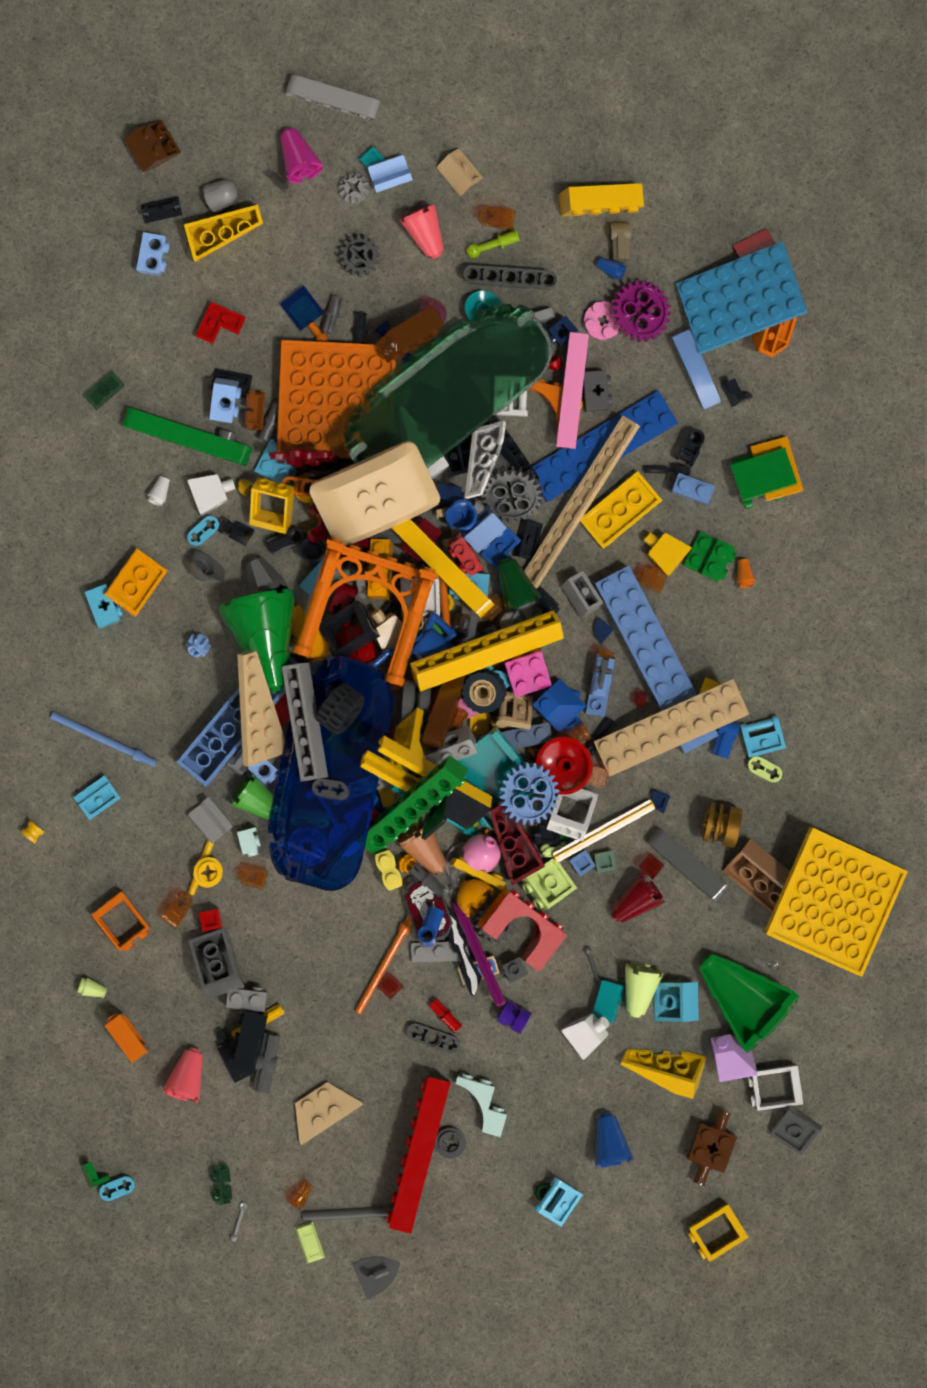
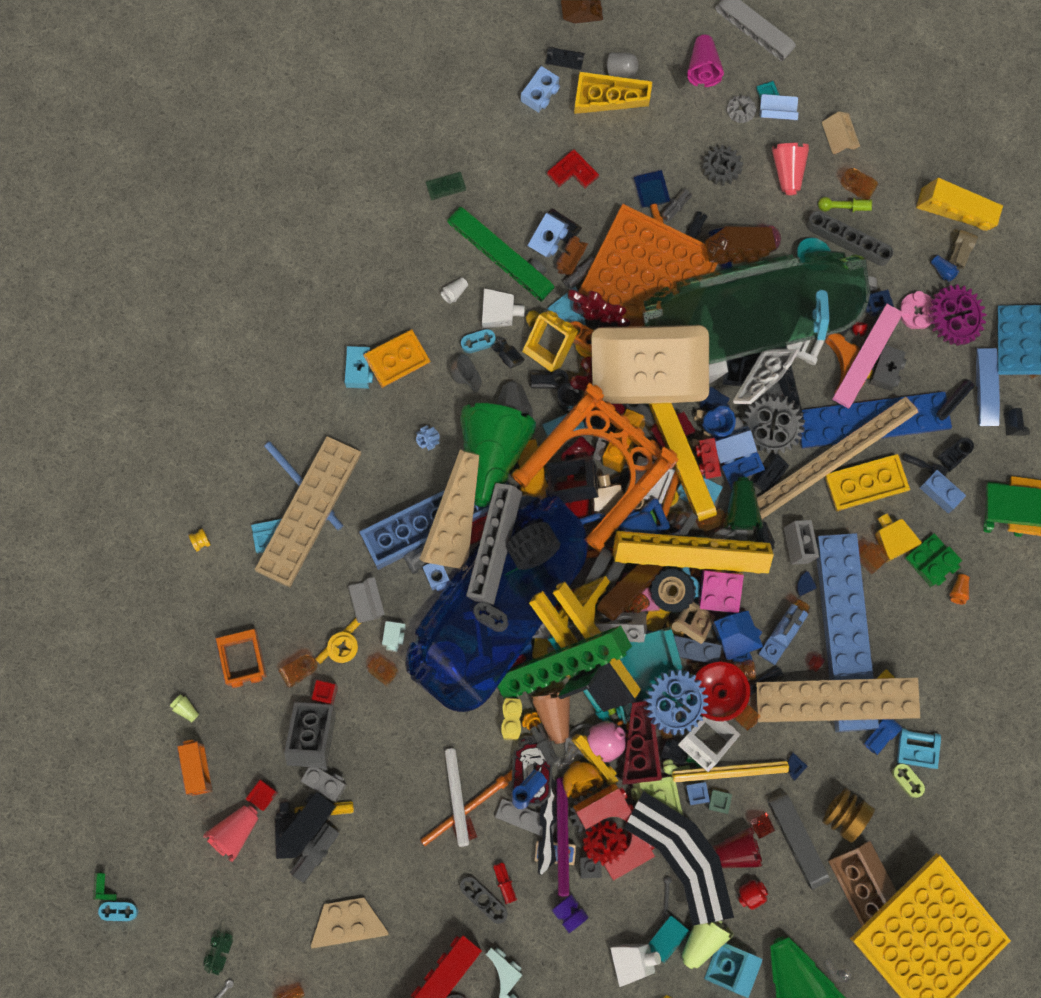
camera: 25 degrees right, 10 degrees down
(120, 762) = (308, 511): none -> tan plate
(196, 1034) = (261, 795): none -> red panel
(253, 797) = (415, 596): bright green cone -> none
(370, 960) = (456, 796): none -> white axle
(511, 377) = (821, 315): none -> medium azure plate
(526, 941) = (615, 843): none -> red gear
(594, 922) = (688, 856): none -> black sticker
(667, 930) = (753, 894): none -> red head
(670, 395) = (955, 400): none -> black axle

